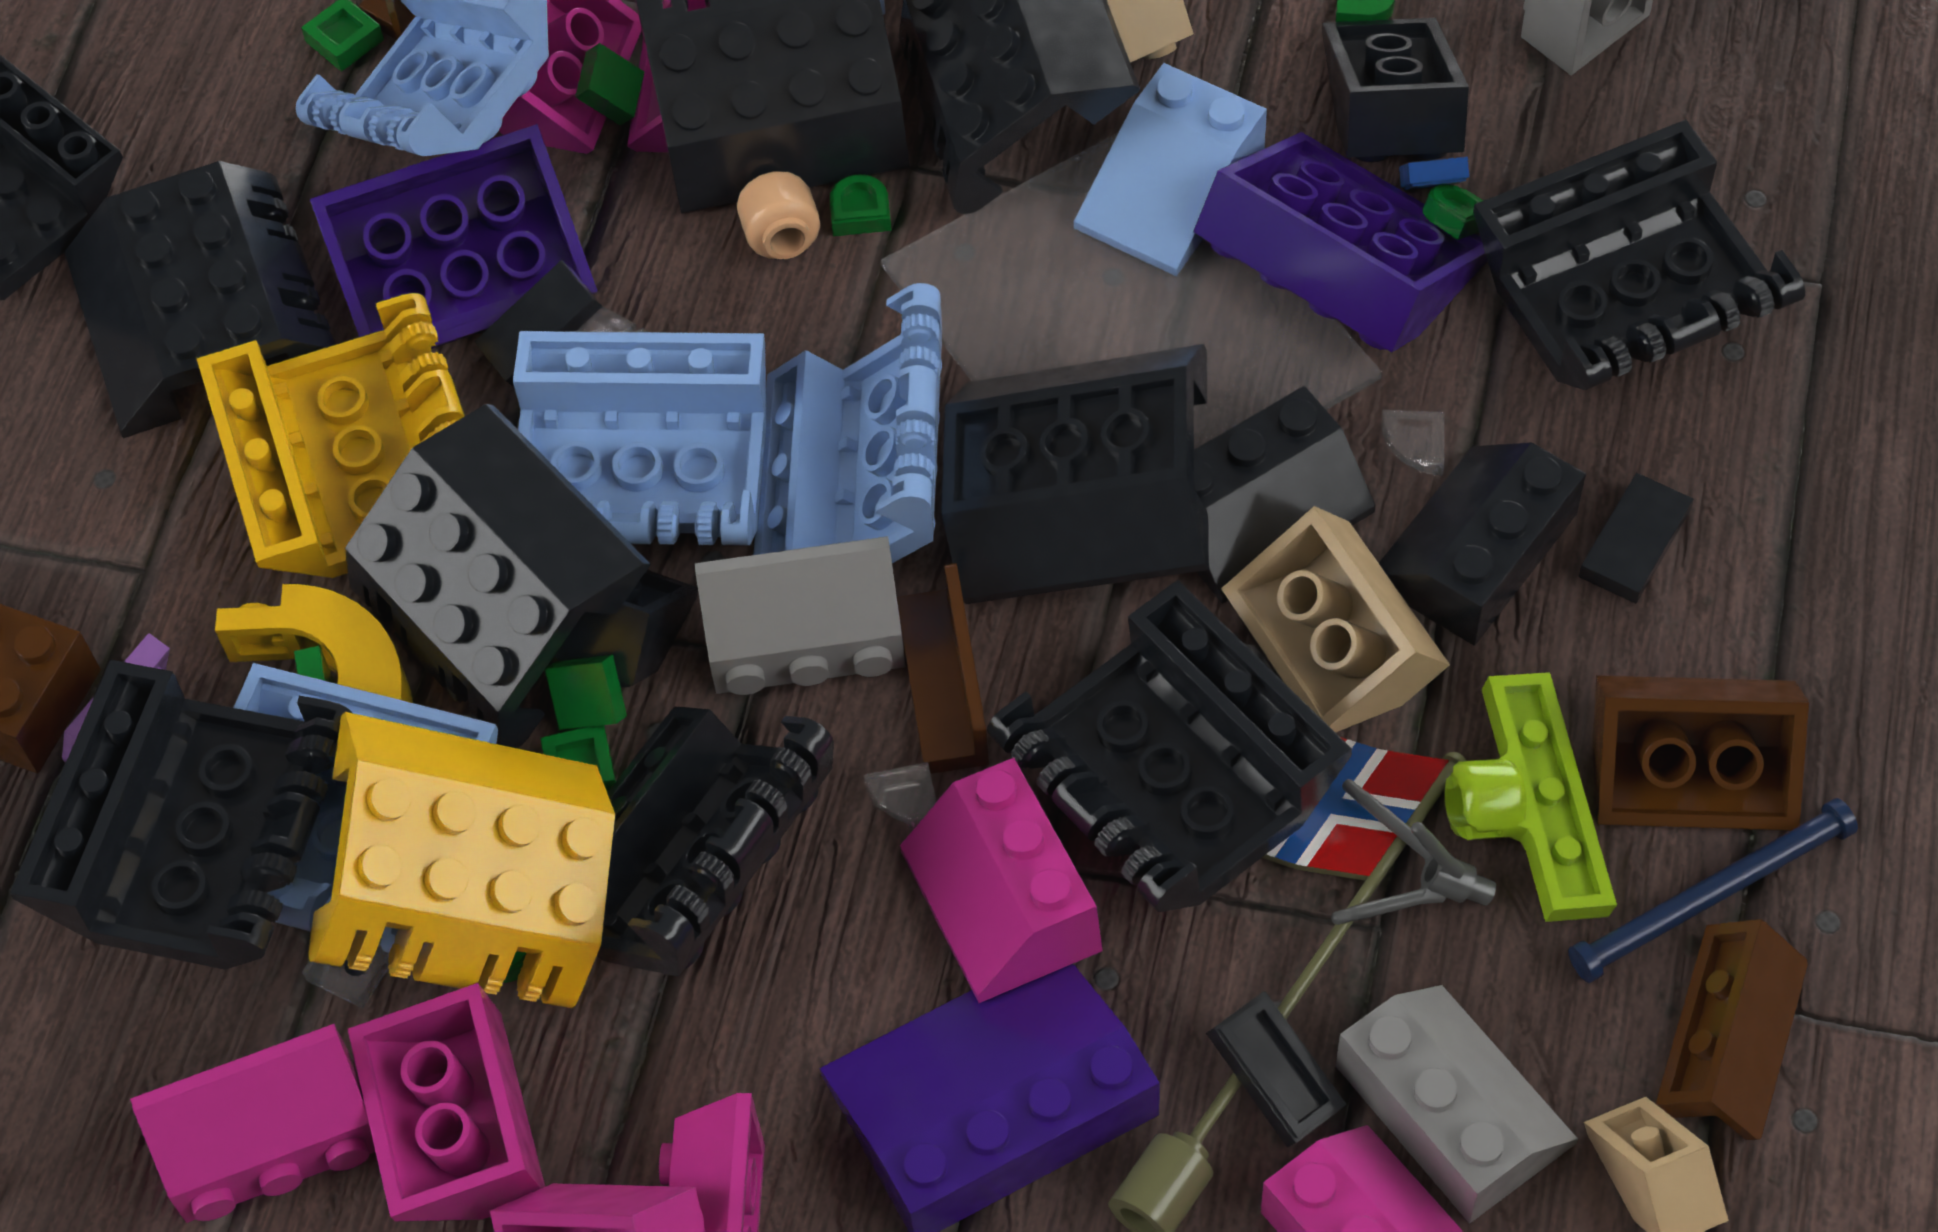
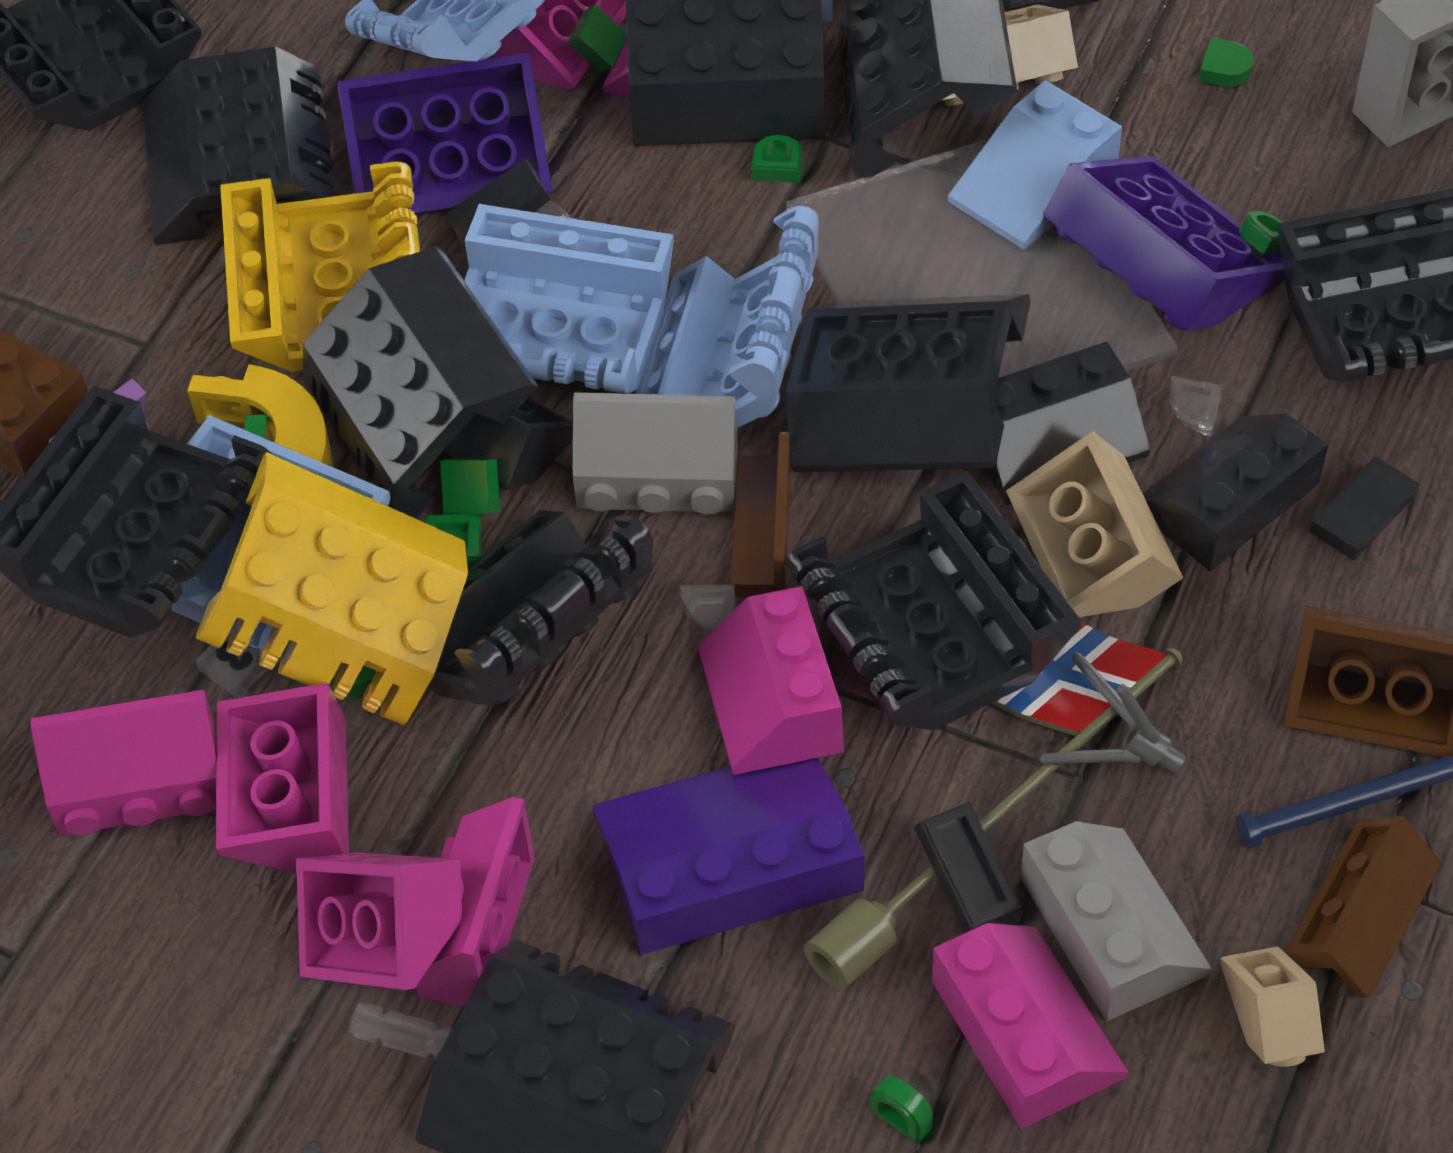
camera: 10 degrees right, 5 degrees down
(778, 215) = (709, 154): light nougat head -> none
(1395, 88) = (1236, 134): black slope -> none
(1434, 173) = (1244, 200): blue tile -> none
(1534, 798) = (1231, 693): lime plate -> none

